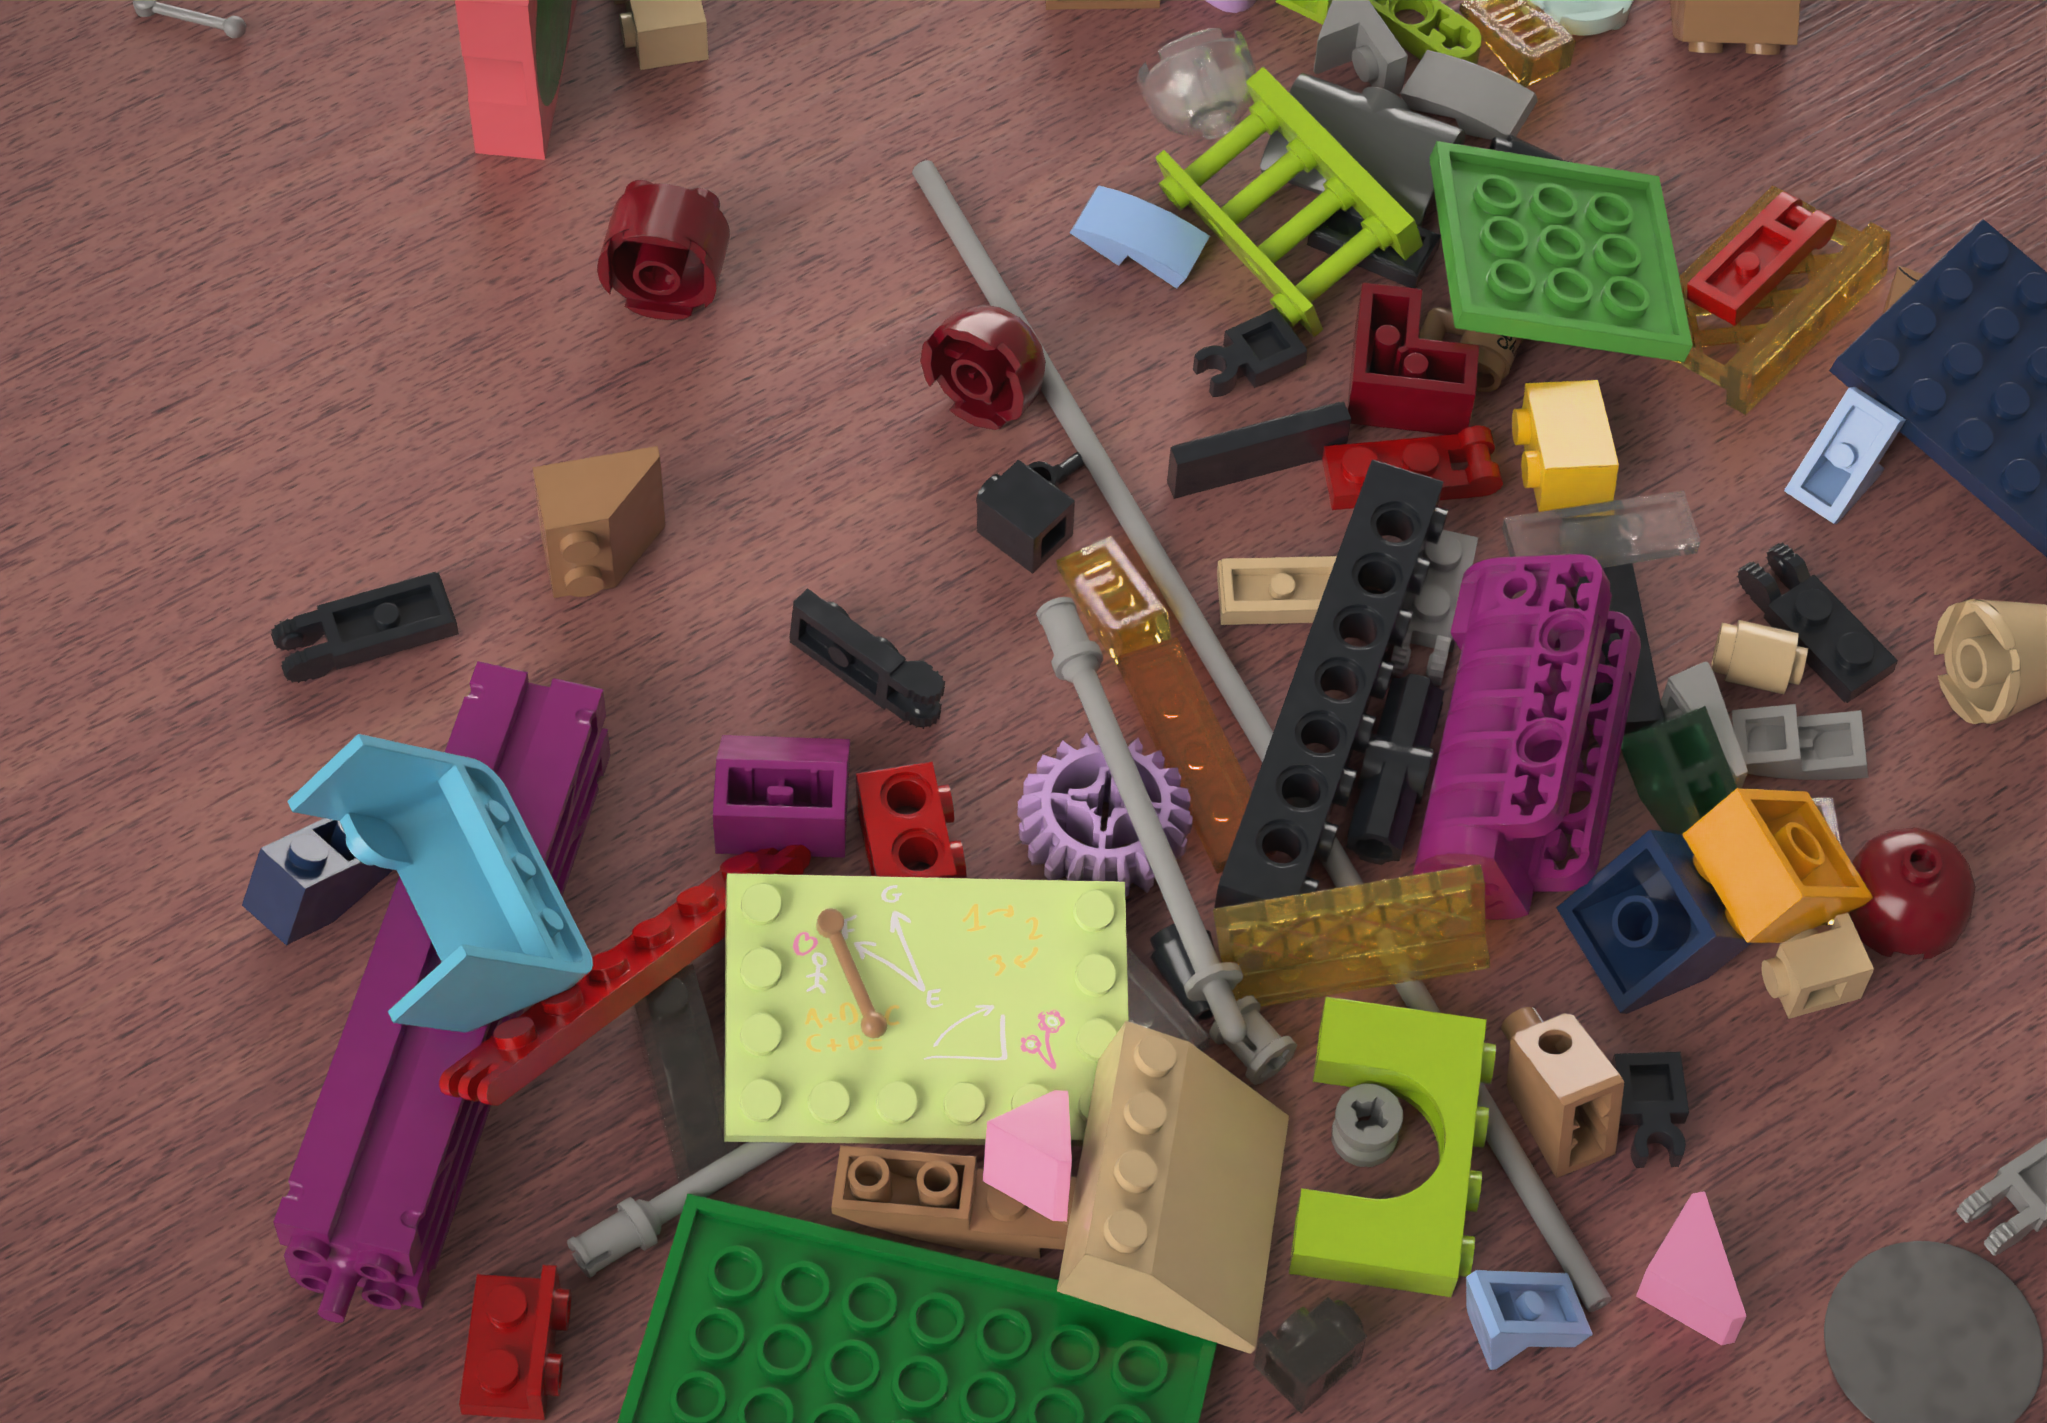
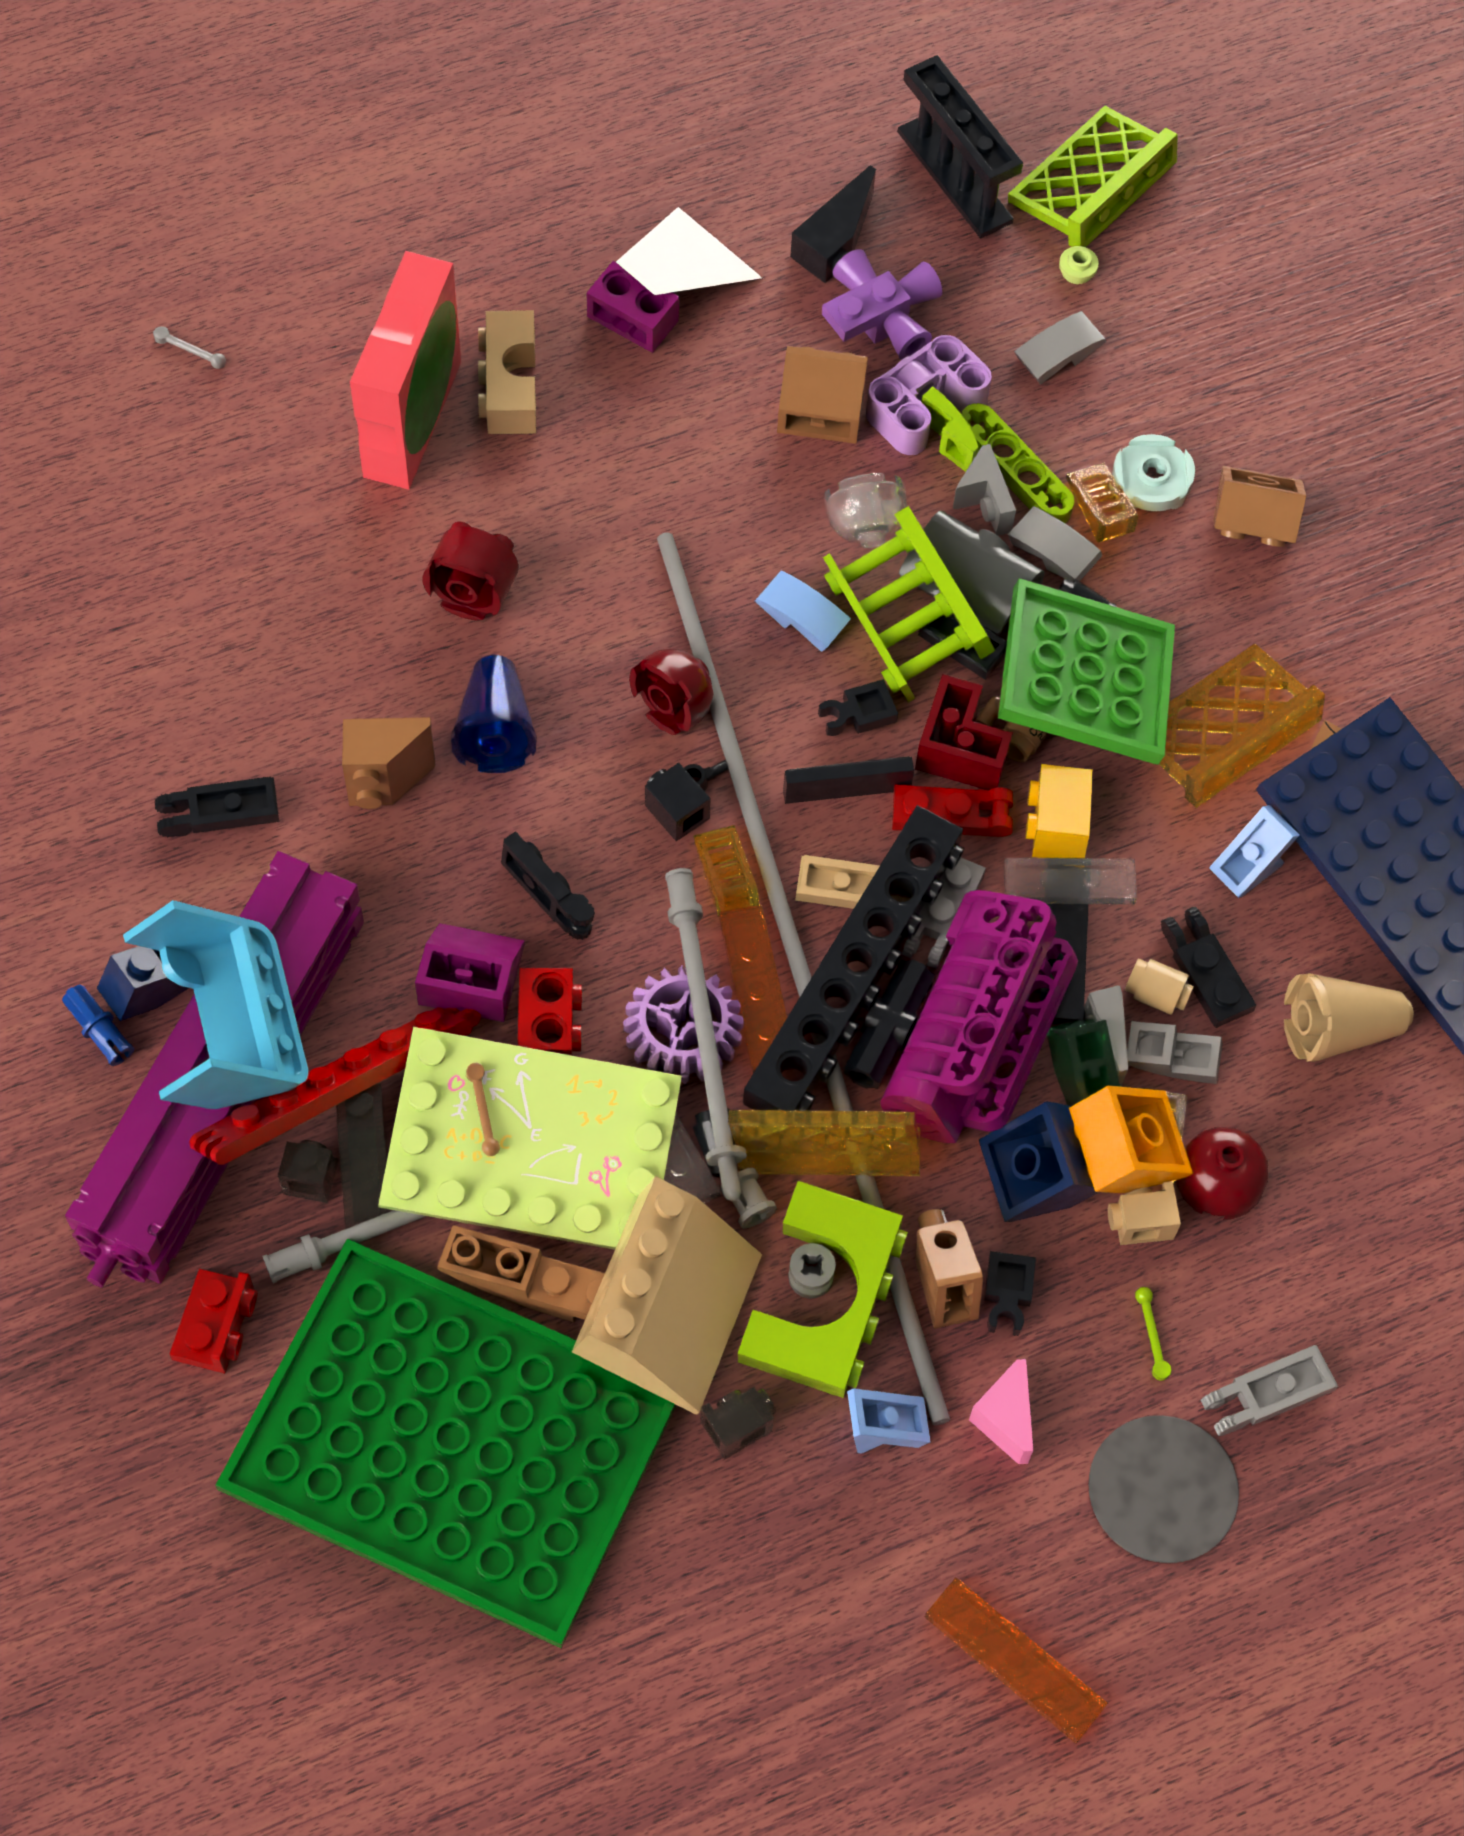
camera: 10 degrees right, 5 degrees up
(252, 956) = (97, 1024): none -> blue axle
(608, 1096) = (308, 1164): none -> clear smoke brick
(741, 445) = (494, 719): none -> clear blue cone
(1032, 1154) = (575, 1254): bright pink slope -> none
(1759, 258) = (1229, 697): red plate -> none
(1889, 1177) = (1161, 1368): none -> lime hinge

